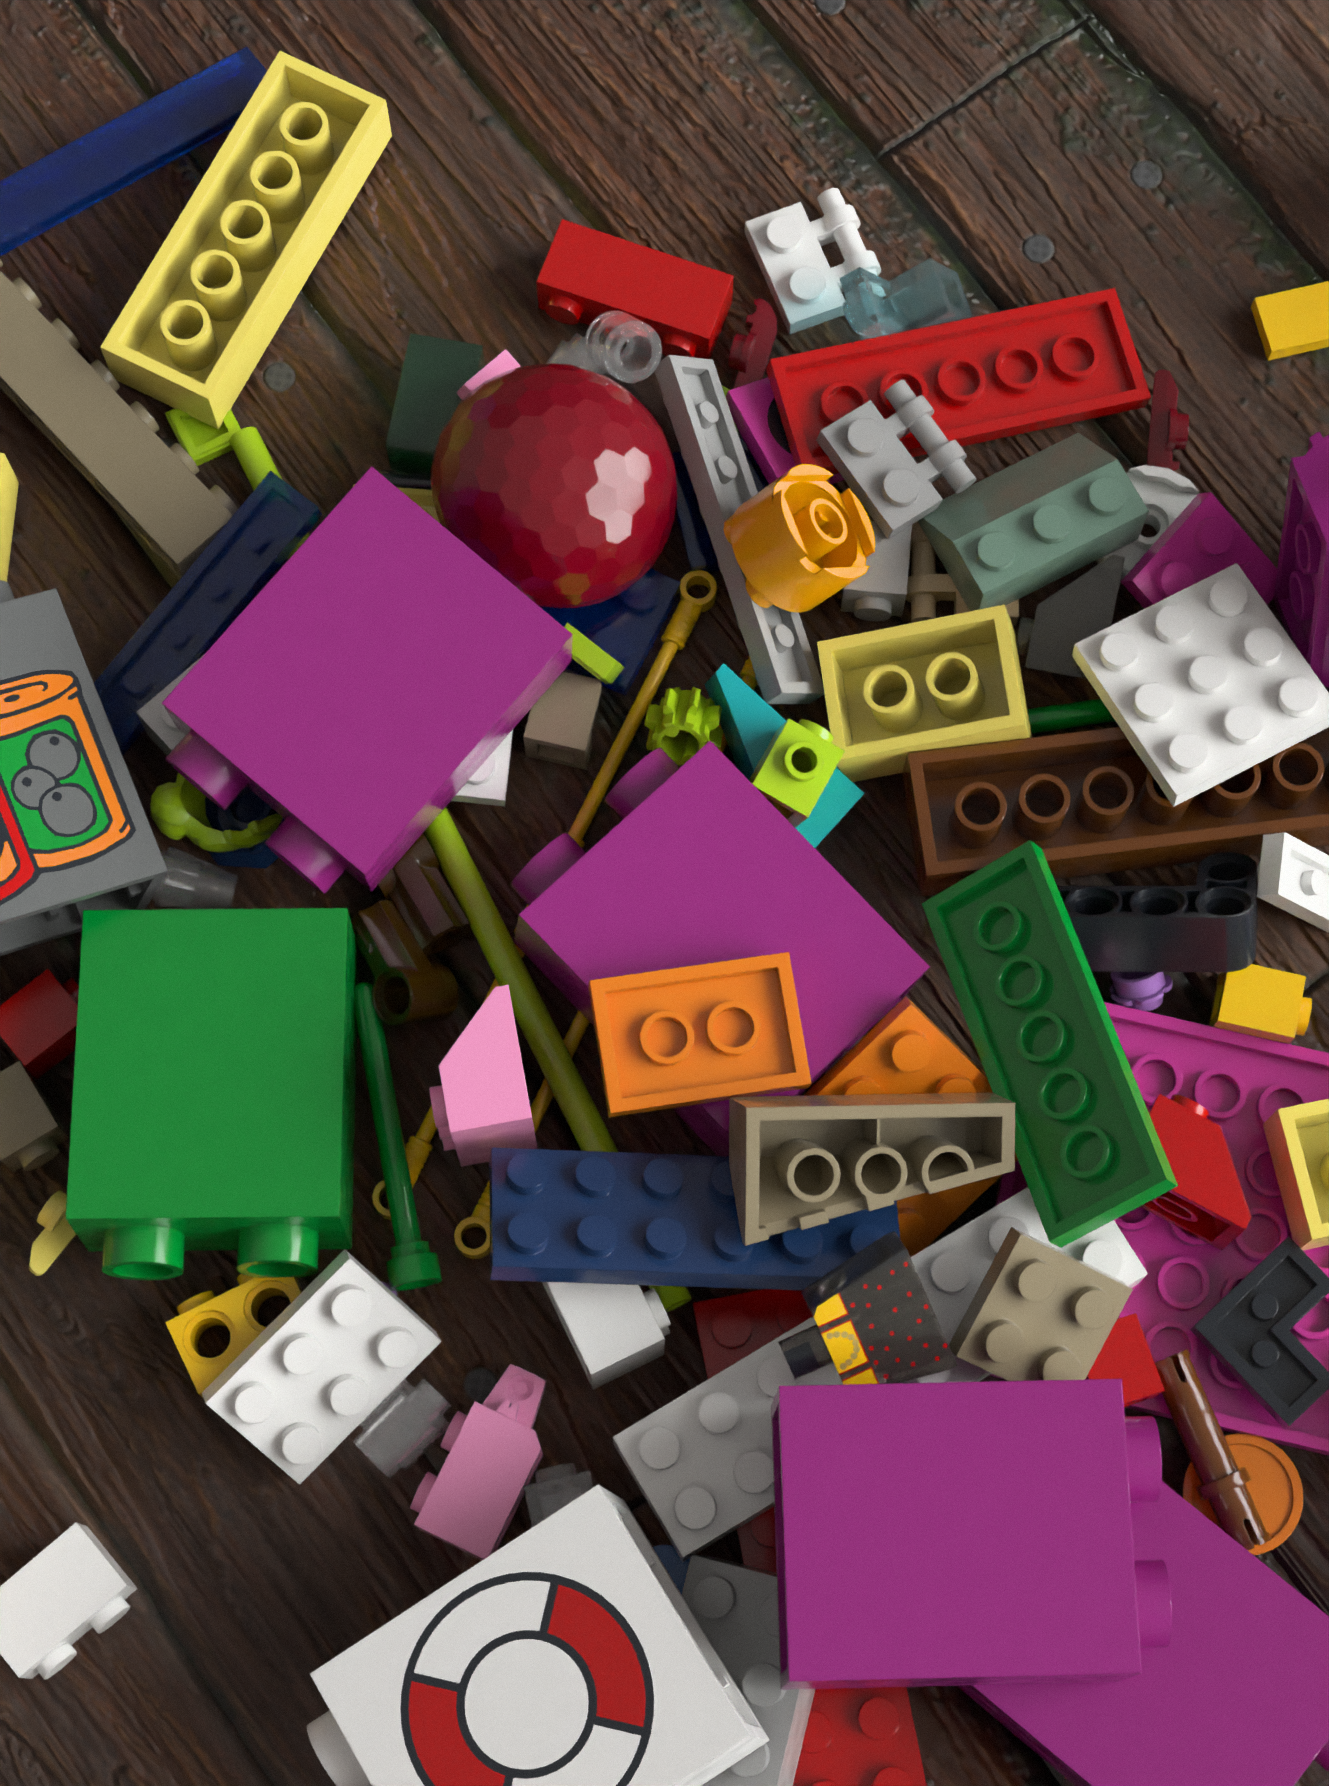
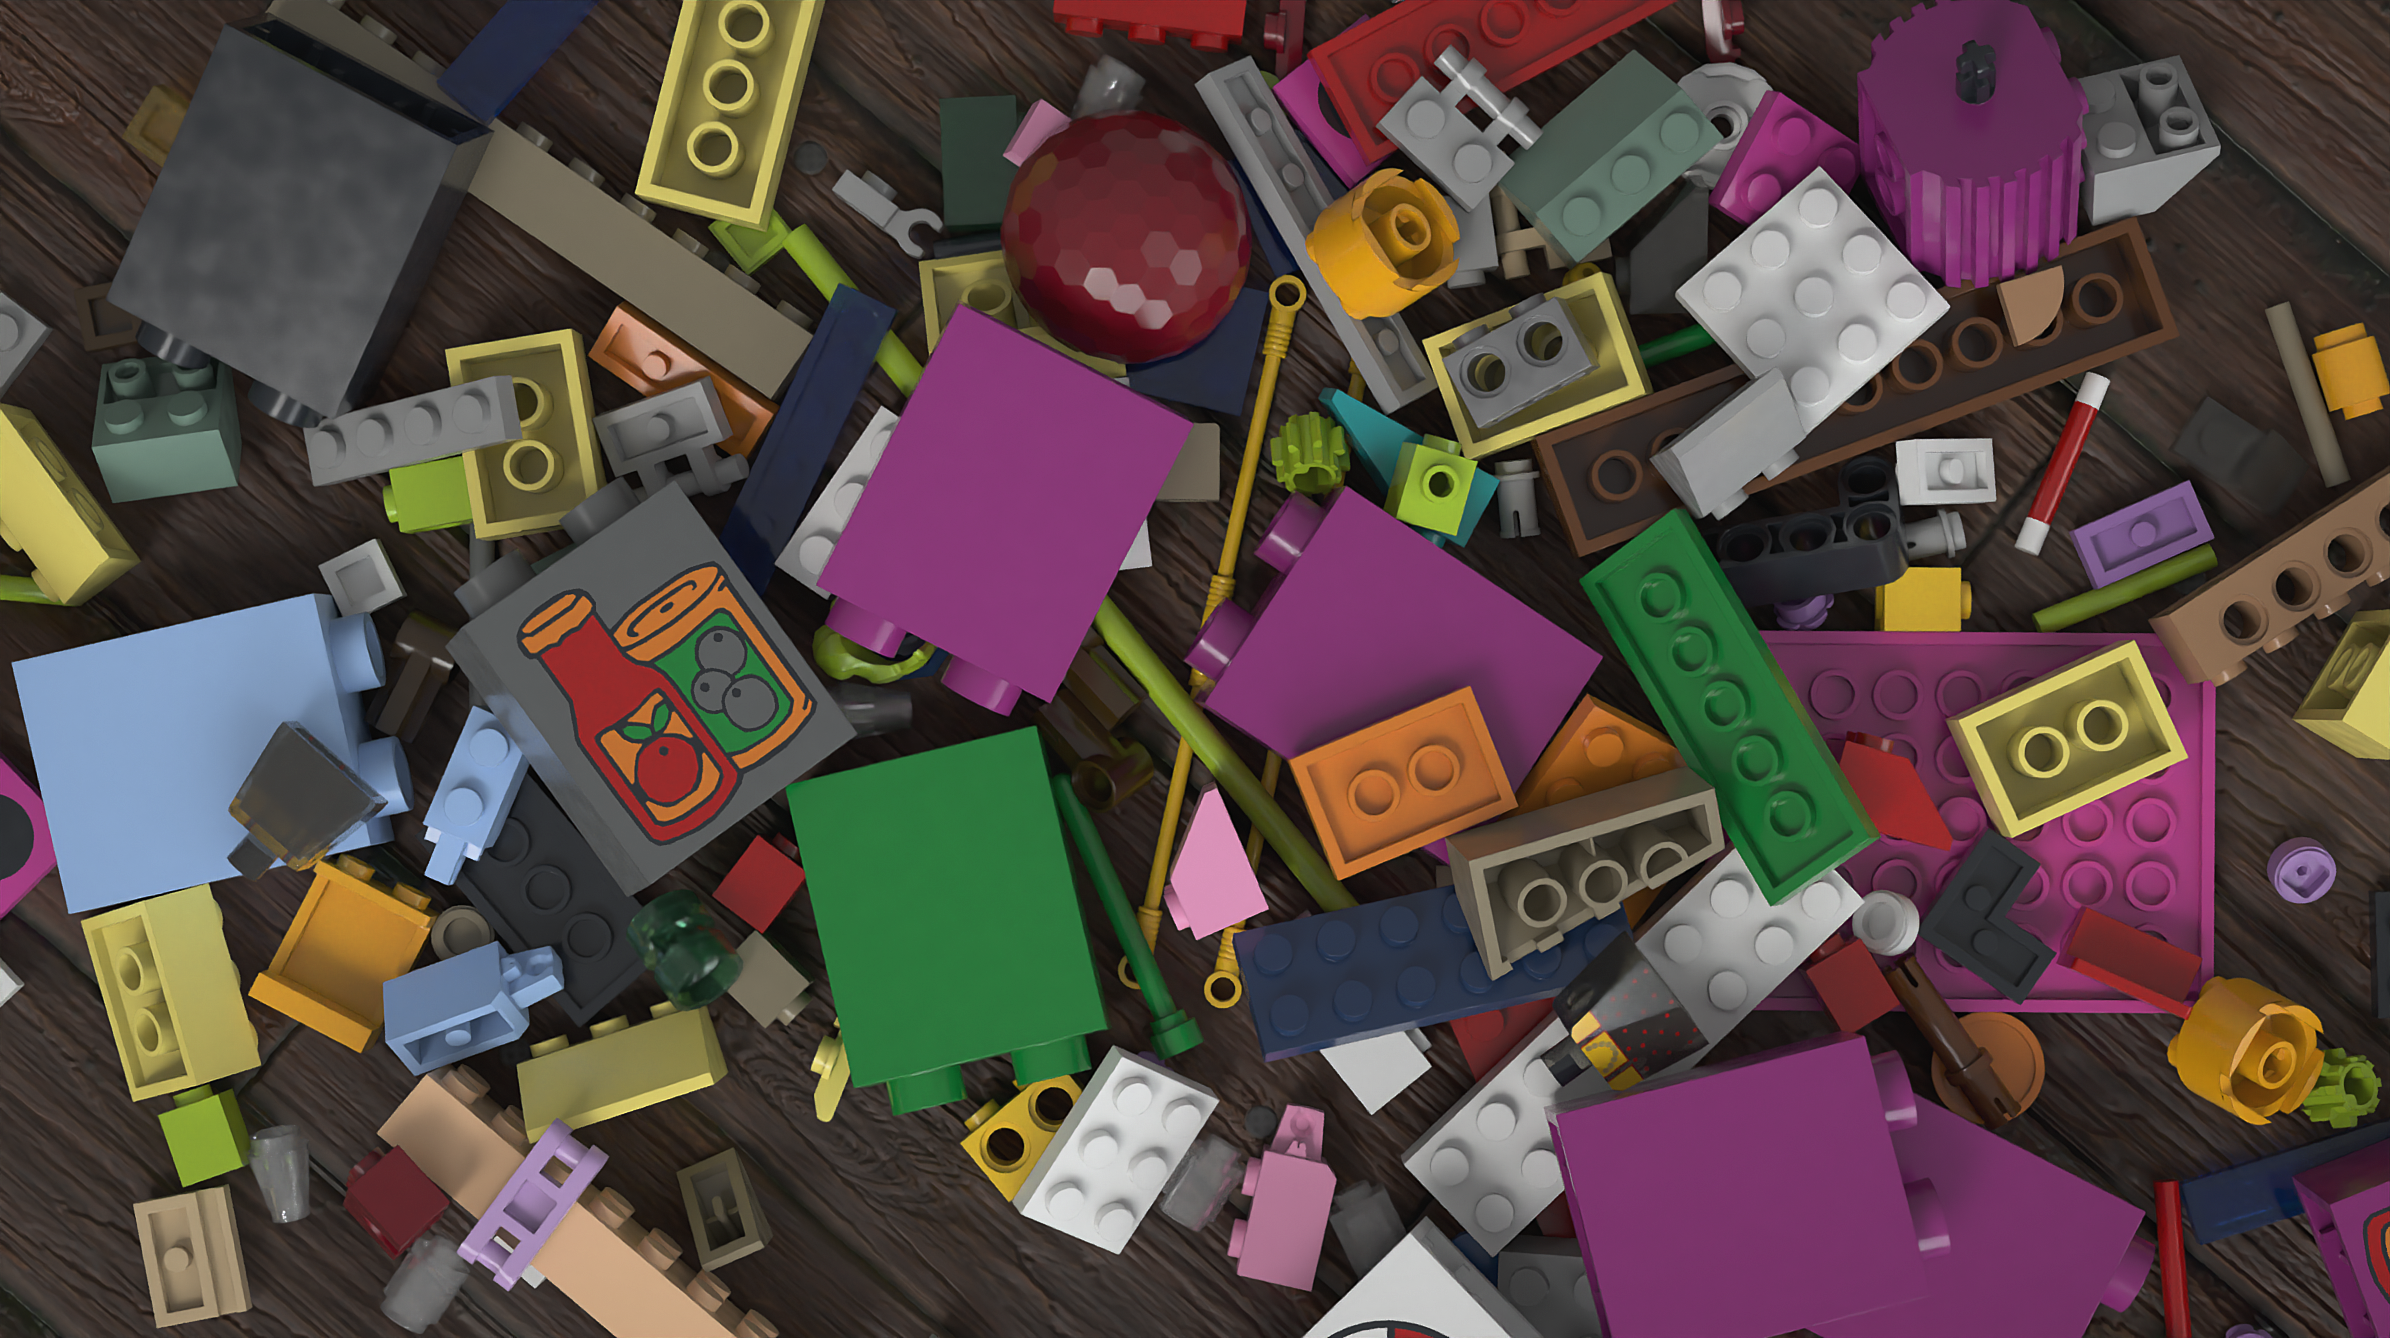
camera: 15 degrees left, 15 degrees up
(82, 569) = (668, 426): none -> light grey plate
(99, 538) = (659, 360): none -> orange plate
(326, 419) = (873, 200): none -> light grey plate
(593, 657) = (1200, 401): lime tile -> none
(623, 346) = (1160, 70): clear brick -> none
(877, 822) = (1516, 494): none -> light grey pin
(912, 683) = (1526, 375): none -> flat silver brick
(1039, 1313) = (1774, 972): dark tan plate -> none
(1100, 778) = (1733, 445): none -> light grey slope
(1166, 1311) = (1886, 922): none -> white tile
(1286, 949) = (1935, 535): none -> light grey pin

